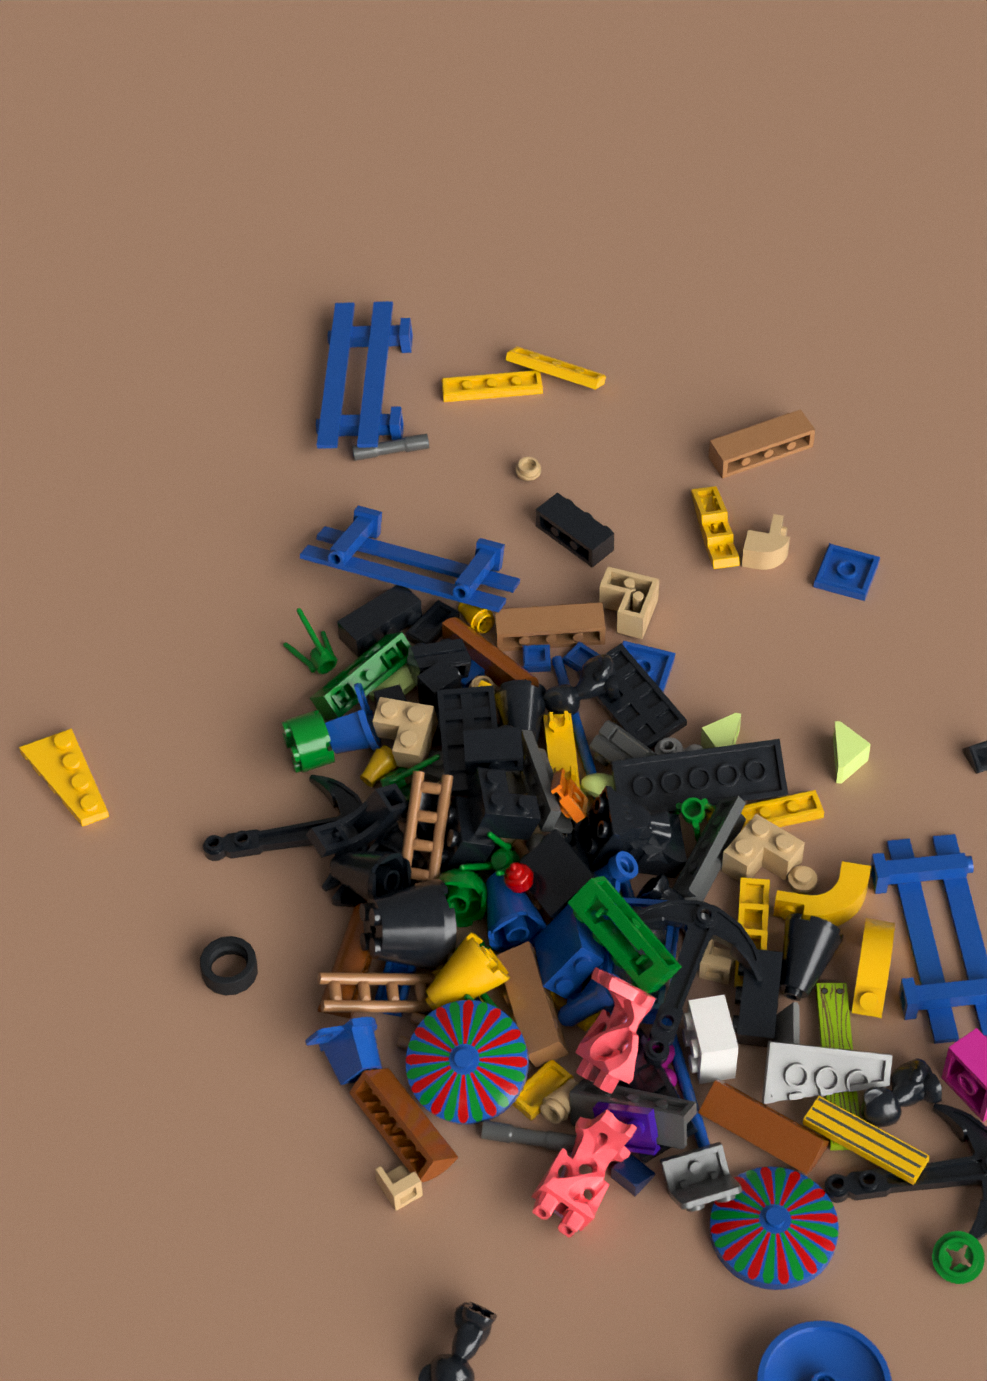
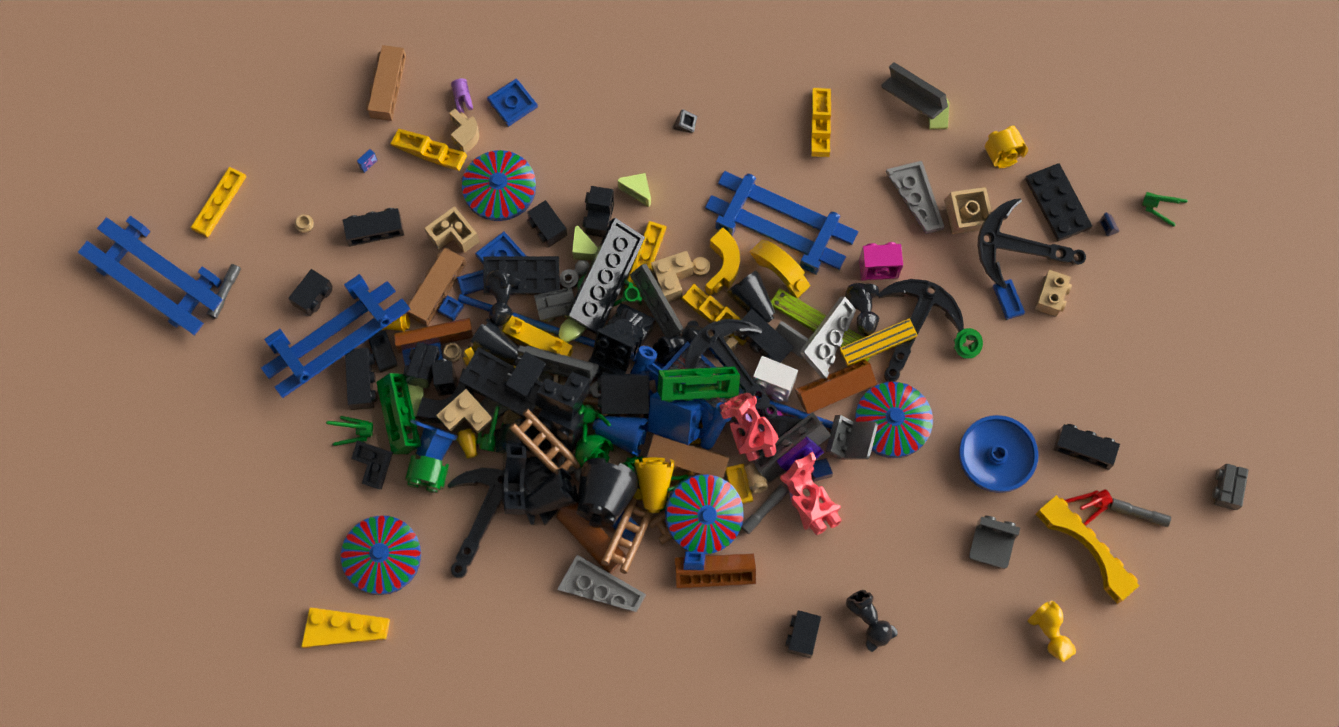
camera: 60 degrees left, 20 degrees up
(181, 762) = (381, 555): none -> dish
(228, 946) = (549, 622): black tyre -> none
(291, 690) = (376, 460): none -> black plate
(294, 1004) = (599, 585): none -> light grey wing
(349, 1048) = (655, 571): blue container -> none
(386, 1279) = (803, 634): none -> black brick
(396, 1086) = (694, 560): none -> blue tile
(399, 1186) = (750, 594): tan panel -> none
(449, 518) = (311, 292): none -> black brick
(518, 877) = (615, 414): red plate -> none
(556, 367) = (235, 156): yellow tile -> none
(572, 800) = (579, 353): orange plate -> none
(650, 479) = (367, 160): none -> blue tile
(719, 687) = (547, 223): none -> black brick
(730, 618) = (499, 185): none -> dish
(787, 721) = (600, 210): none -> black brick
(809, 518) = (461, 94): none -> medium lavender hinge

